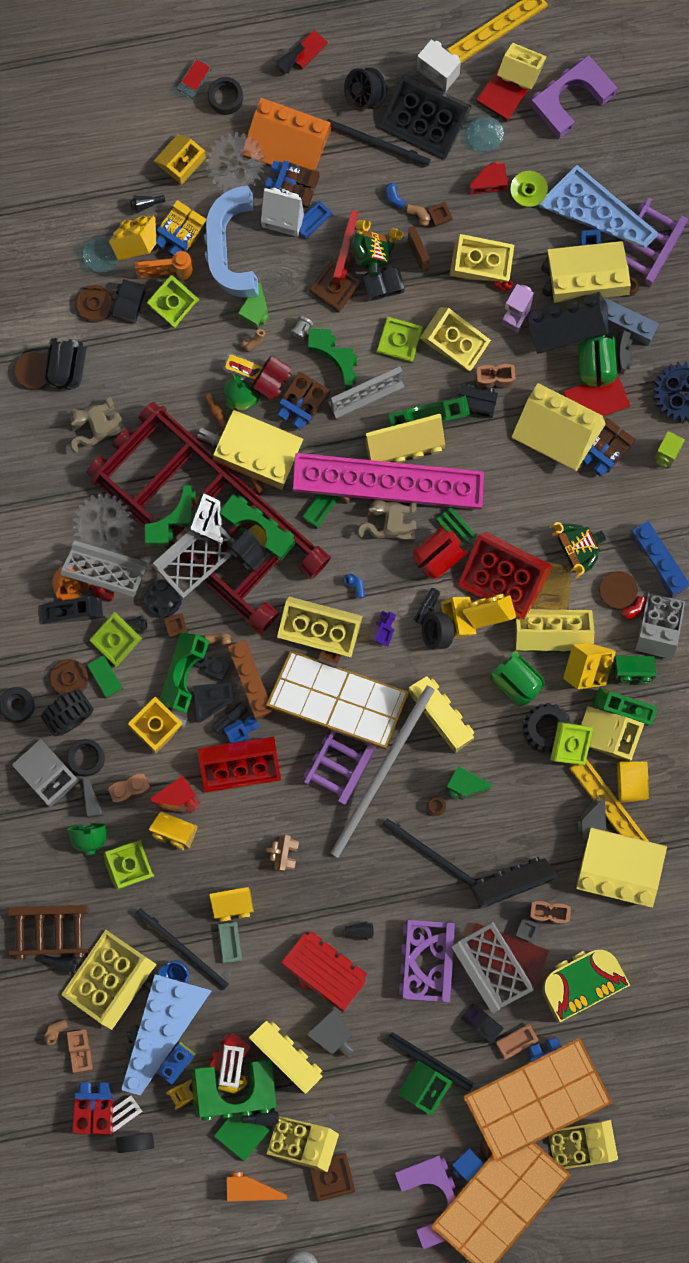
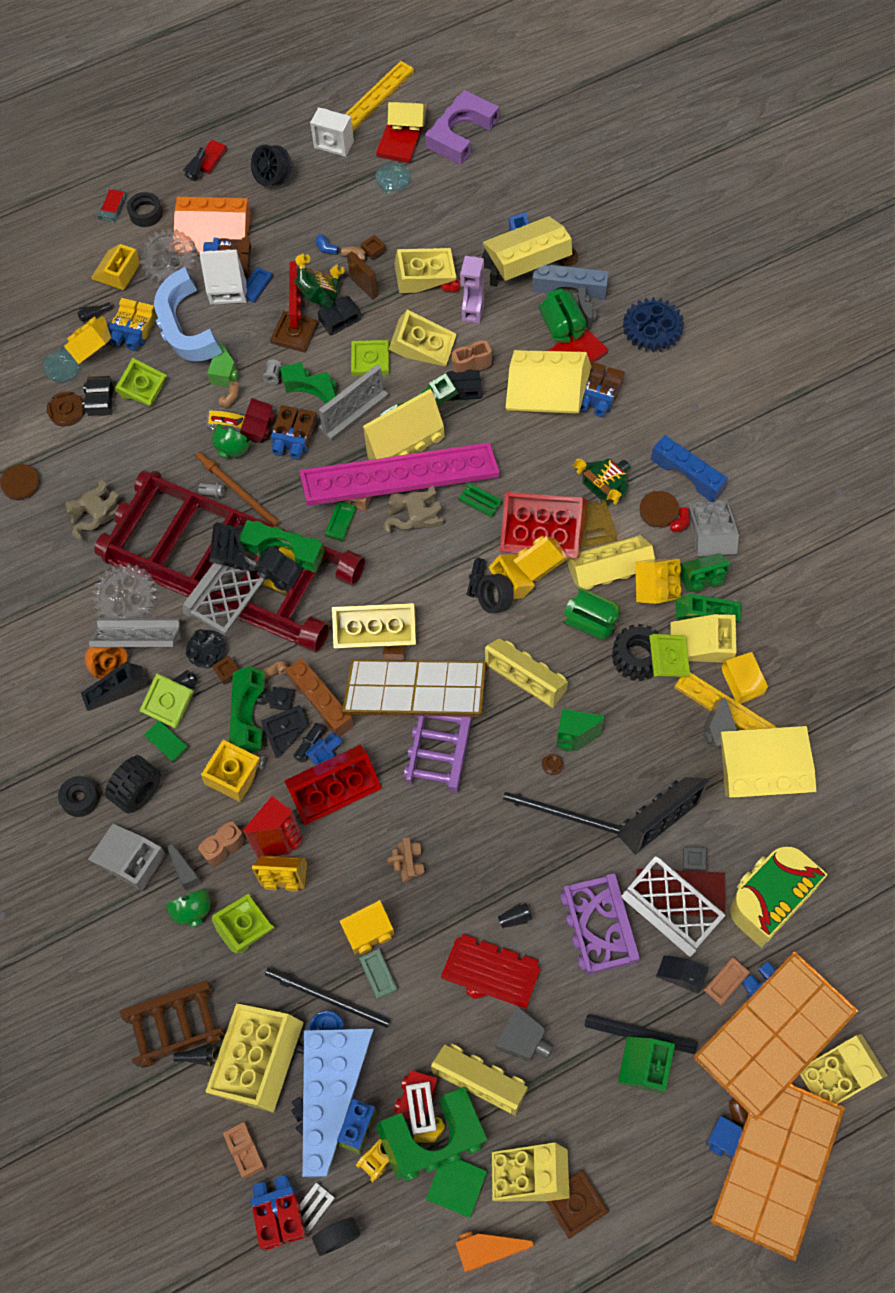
camera: 15 degrees left, 15 degrees down
(53, 1031) = (206, 1136): medium nougat arm -> none
(65, 364) = (48, 462): black cylinder -> none
(68, 676) = (126, 747): reddish brown tile -> none
(82, 743) = (159, 813): black tyre -> none
(99, 592) = (135, 658): red arm -> none
(159, 533) = (184, 577): green arch -> none
(179, 265) = (137, 348): orange piece -> none
(257, 449) = (260, 487): light yellow slope -> none
(266, 1119) = (477, 1159): black cone -> none
(356, 583) = (398, 578): blue arm -> none
(382, 771) = (484, 743): light grey piece -> none
(383, 631) = (439, 612): dark purple plate -> none
(410, 155) = (331, 210): black bar -> none
(425, 116) = (333, 174): black slope -> none
(427, 1172) = (690, 1159): medium lavender arch -> none
(445, 559) = (471, 522): red cylinder -> none
(491, 179) = (410, 208): red slope -> none
(529, 180) = (448, 205): lime dish -> none
(543, 911) = (717, 831): nougat brick -> none
(569, 322) = (524, 289): black slope -> none
(589, 203) = (507, 198): light blue wing -> none
(667, 241) = (589, 212): medium lavender fence -> none
(668, 450) = (659, 371): lime brick -> none

